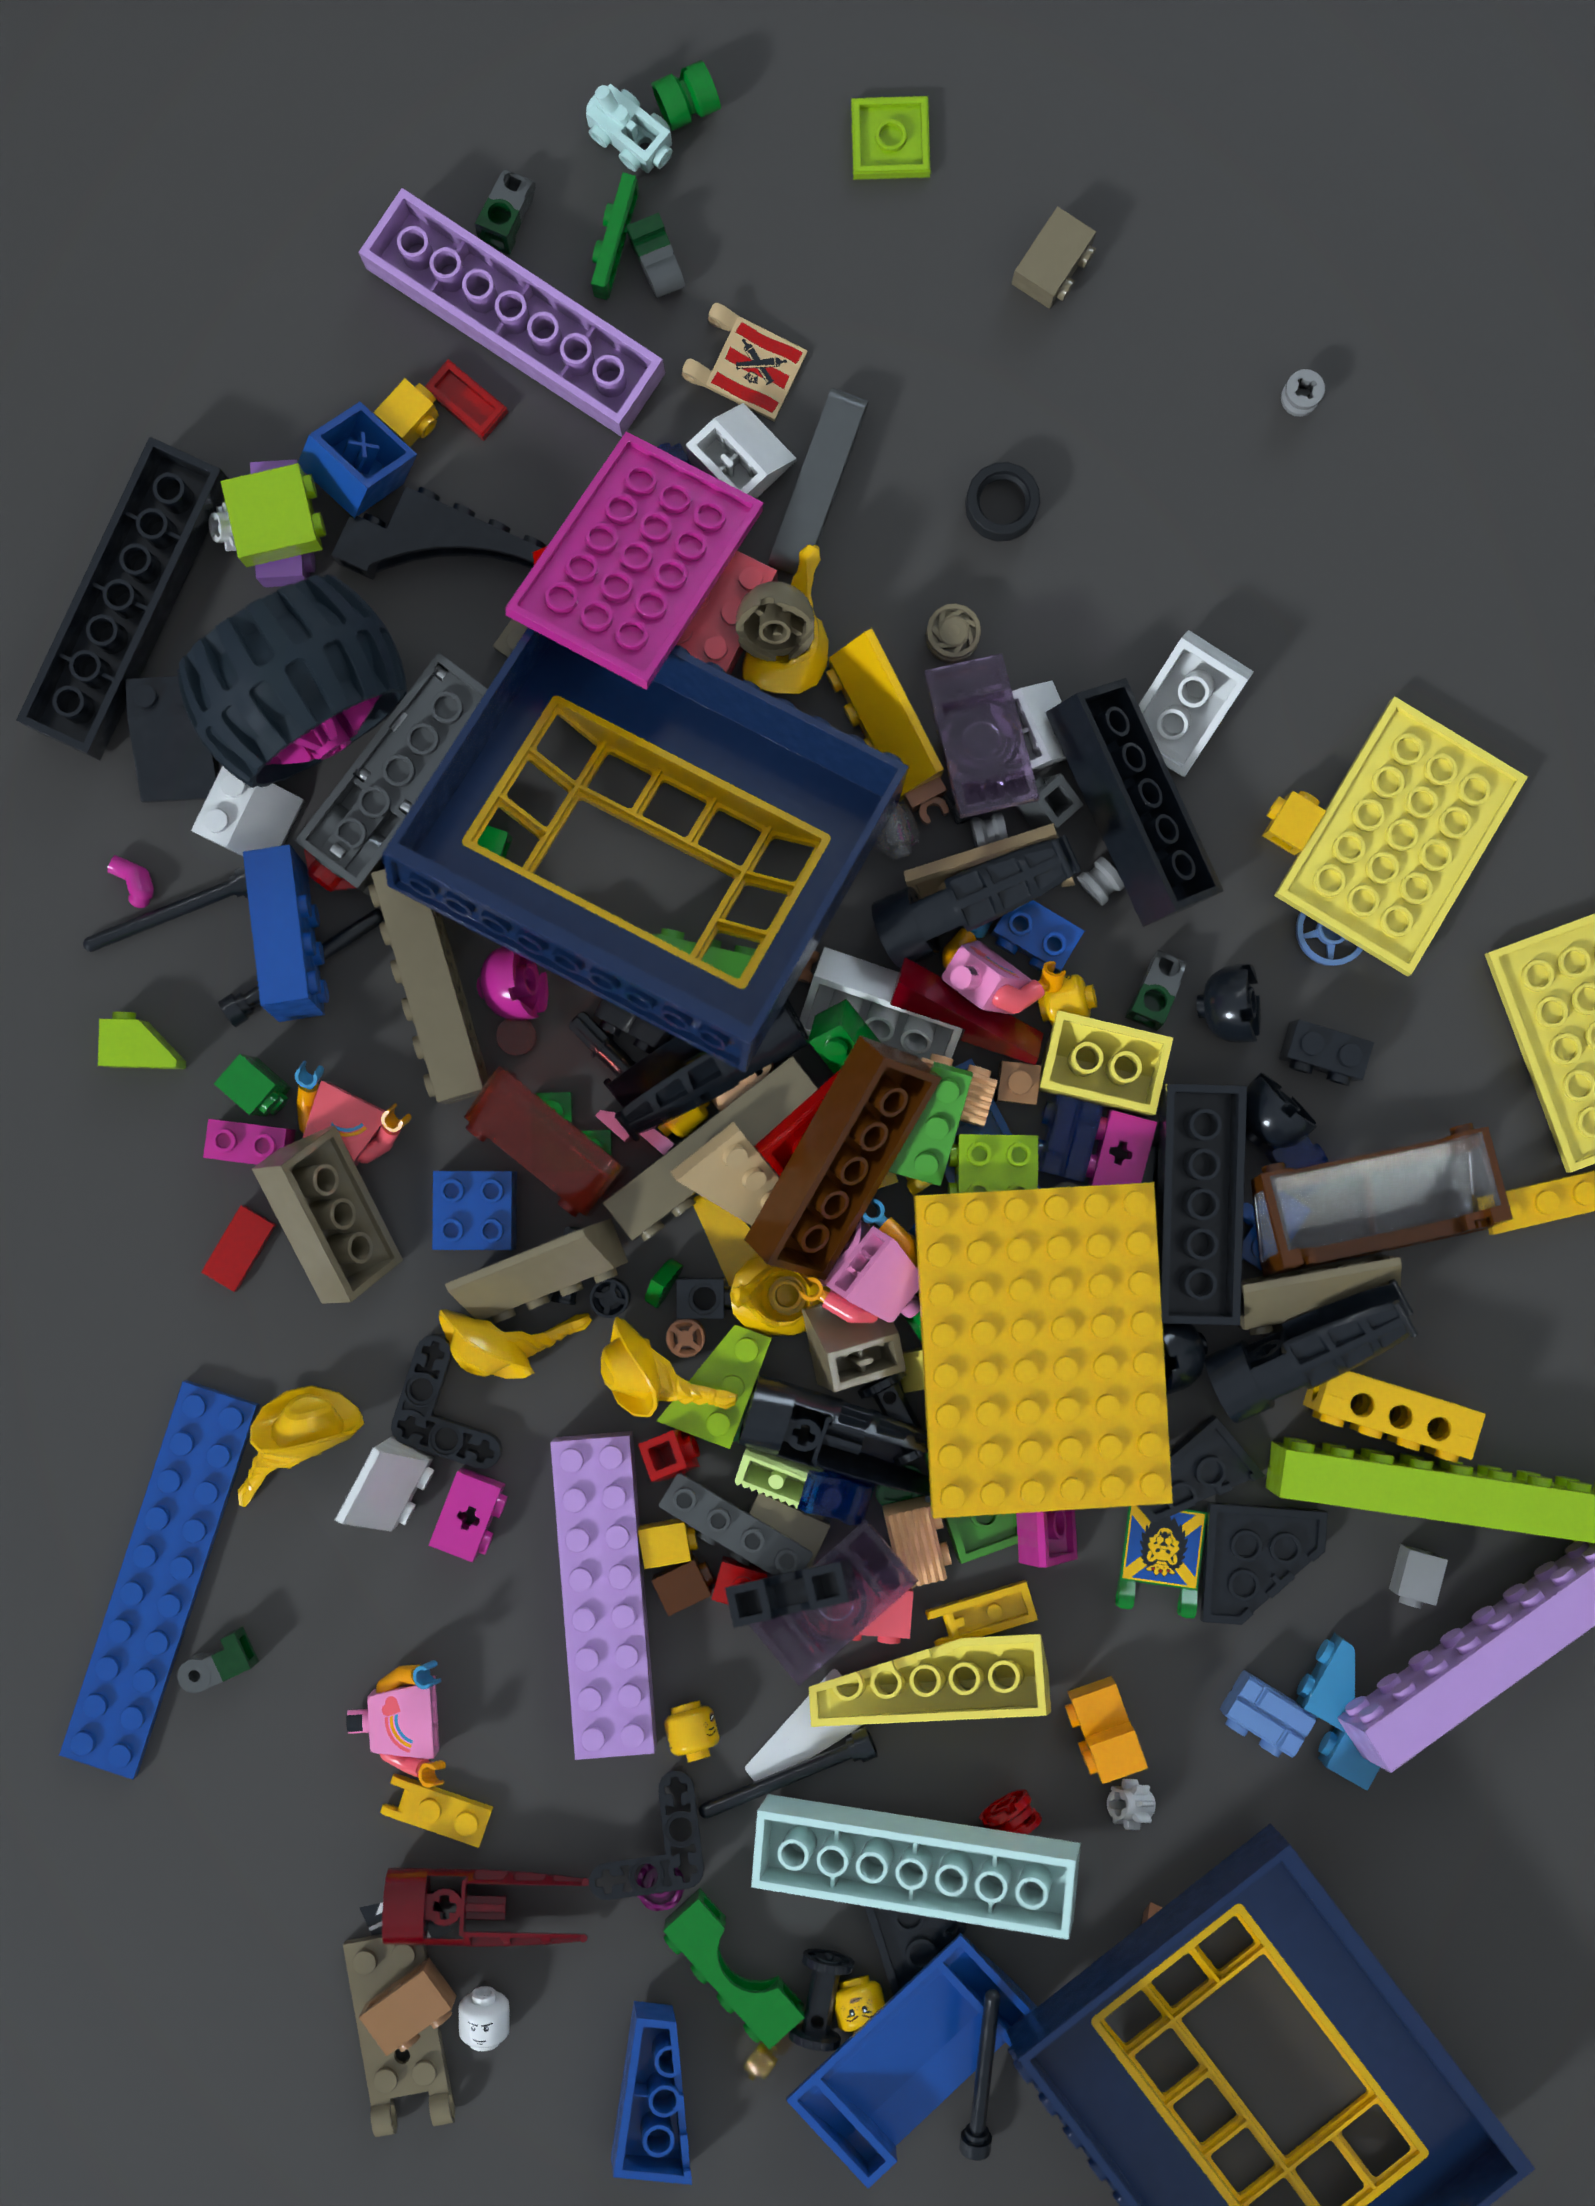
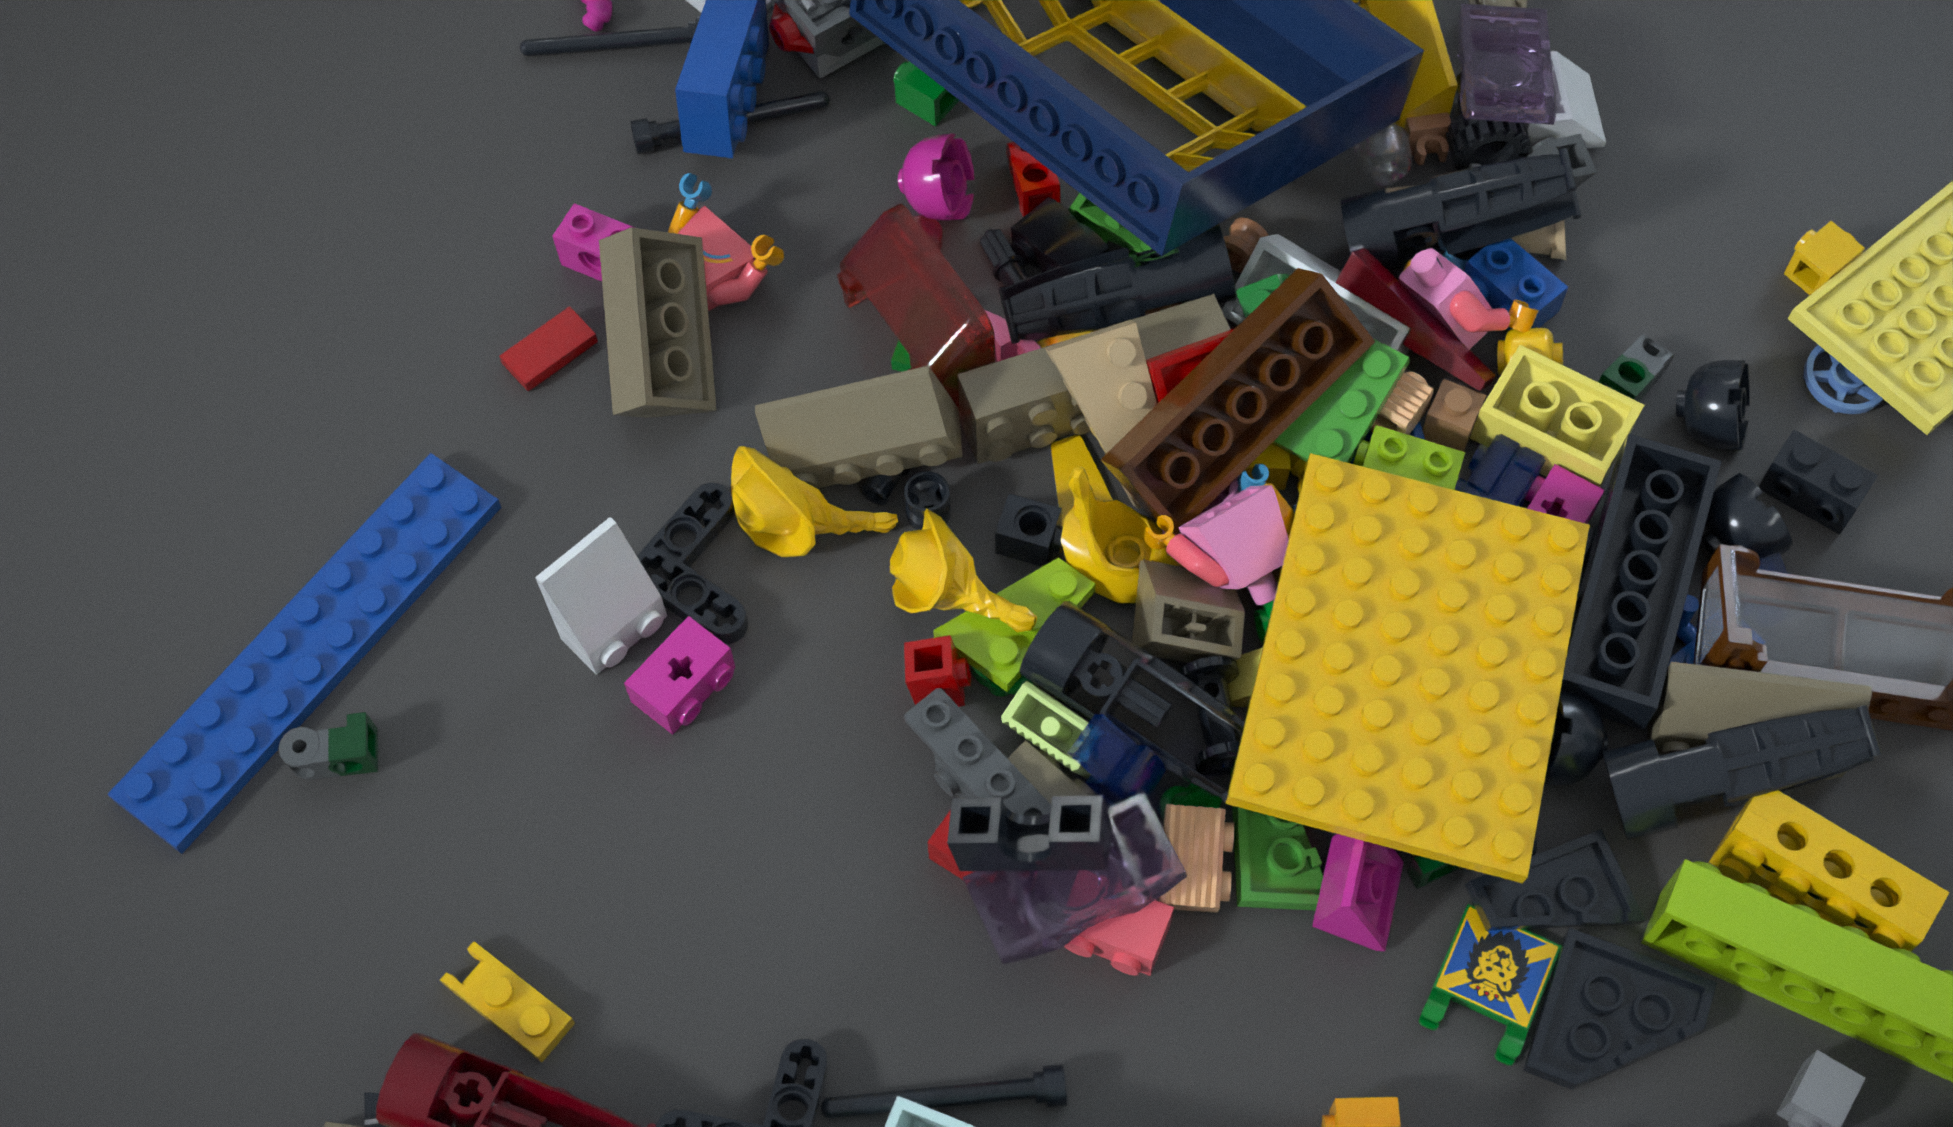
camera: 15 degrees right, 25 degrees down
(134, 1044) = (528, 137): lime slope -> none
(253, 1086) = (632, 187): green brick -> none
(297, 1428) = (534, 522): yellow hat -> none
(403, 1721) = (514, 871): torso -> none
(433, 994) = (852, 144): dark tan brick -> none
(474, 1210) = (811, 358): blue brick -> none
(603, 1595) = (800, 812): lavender brick -> none
(663, 1282) = (987, 506): green tile -> none
(666, 1543) = (896, 774): yellow brick -> none
(682, 1342) = (1001, 557): nougat wheel -> none
(683, 1584) = (899, 826): reddish brown brick -> none
(691, 1730) = (848, 995): yellow head -> none
(796, 1741) = (997, 1050): white sticker -> none
(941, 1683) = (1193, 1039): light yellow wedge -> none
(985, 1612) = (1252, 974): yellow hinge -> none
(1101, 881) = (1596, 258): light grey wheel -> none
(1134, 801) = (1653, 186): black brick -> none
(1191, 699) = (1730, 124): white slope -> none

